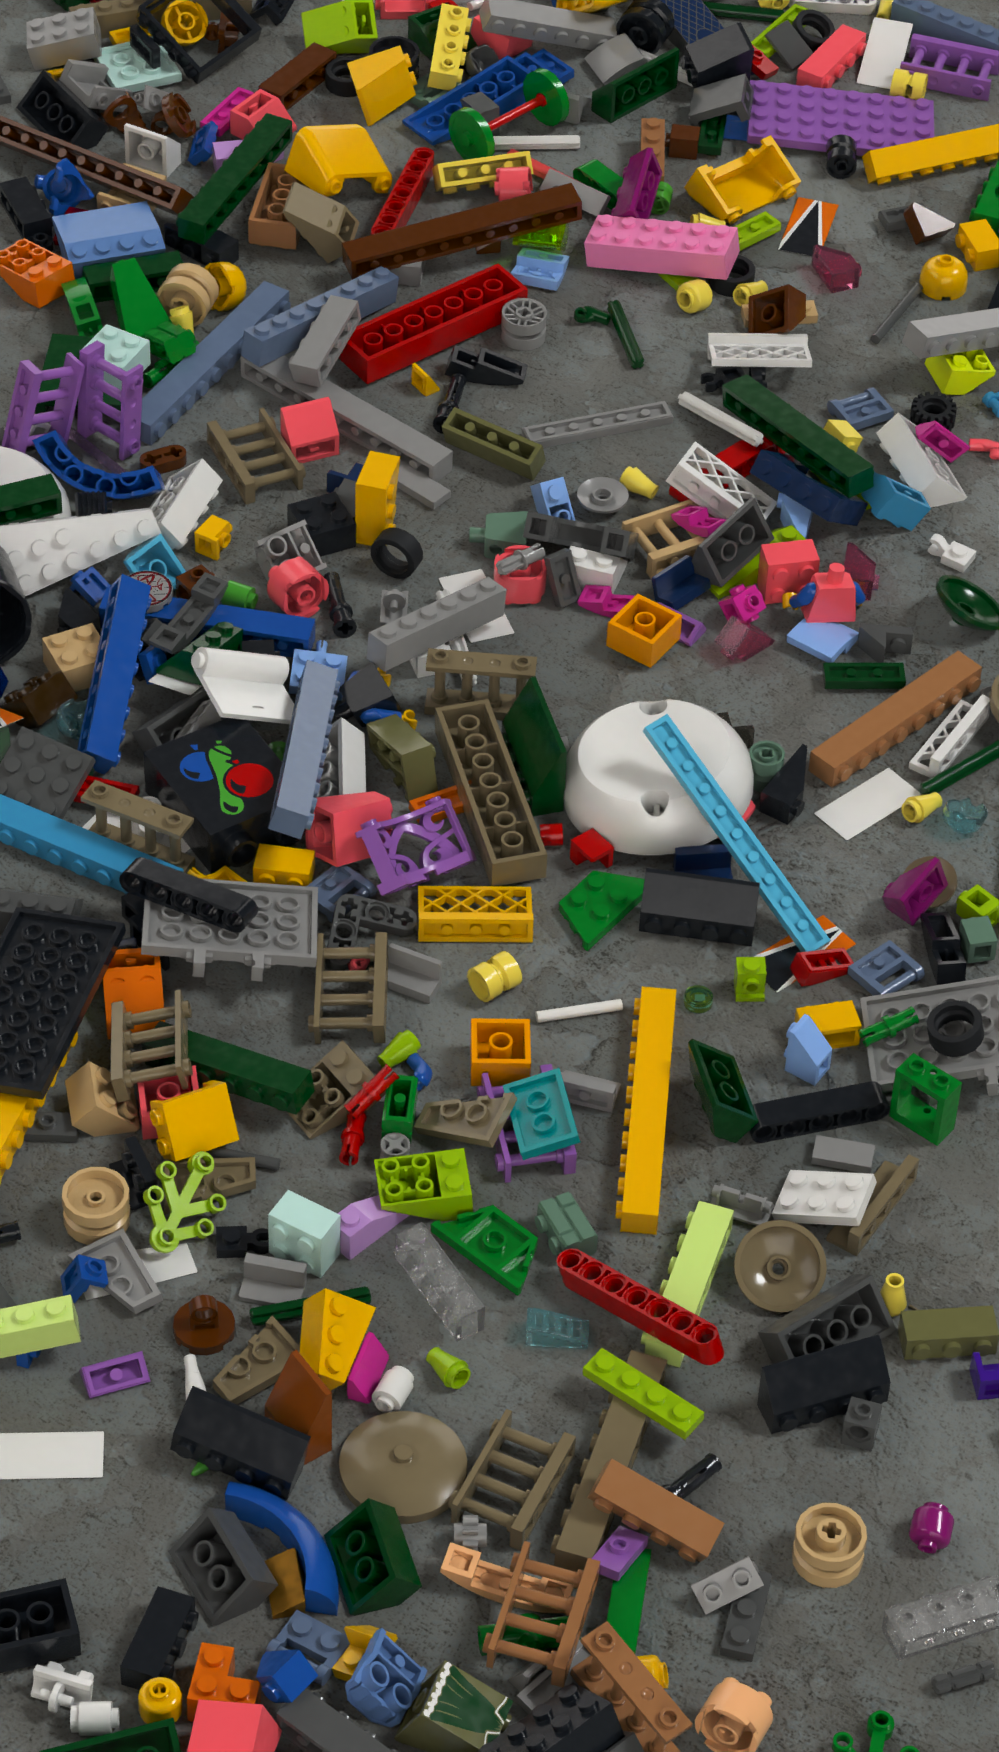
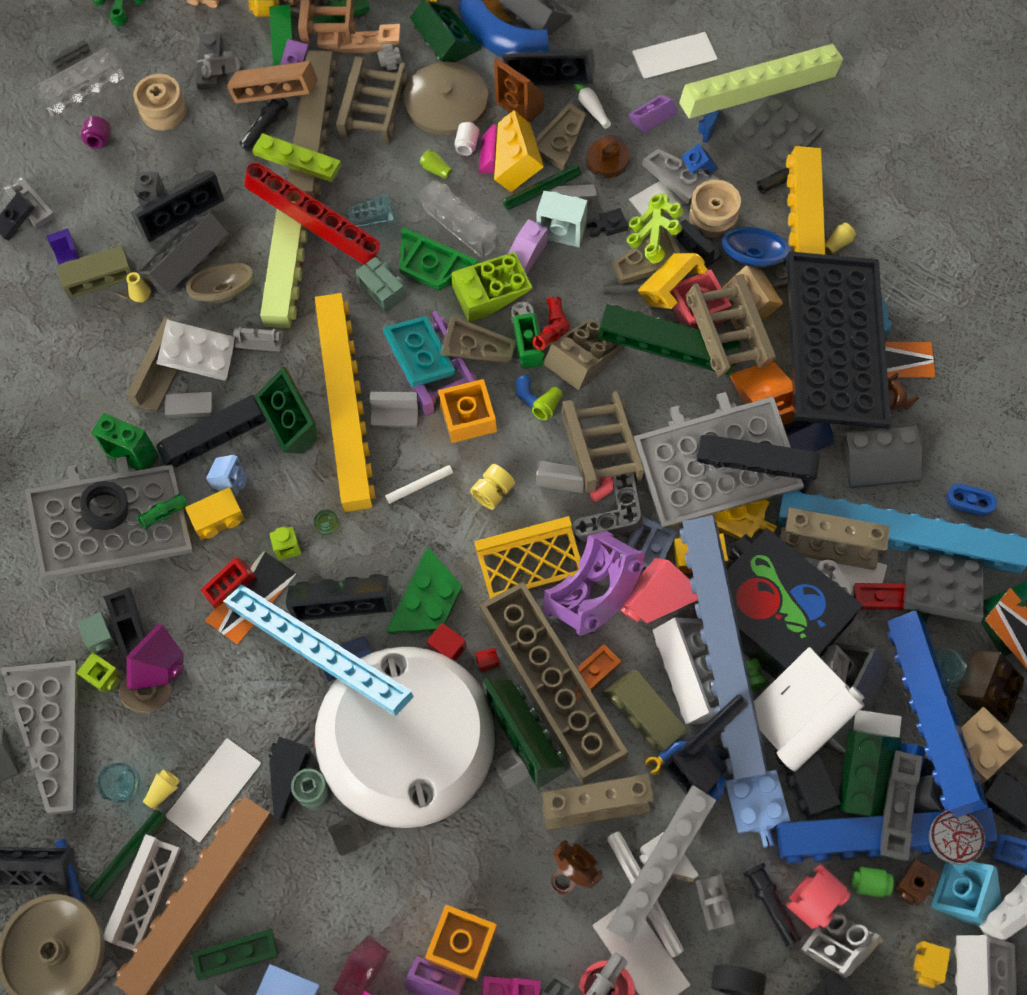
camera: 170 degrees right, 20 degrees up
(56, 1132) = (755, 246): none -> blue dish
(340, 695) = (716, 724): none -> black axle
(519, 643) = (575, 864): none -> reddish brown tile
(883, 963) = (180, 590): sand blue plate -> none

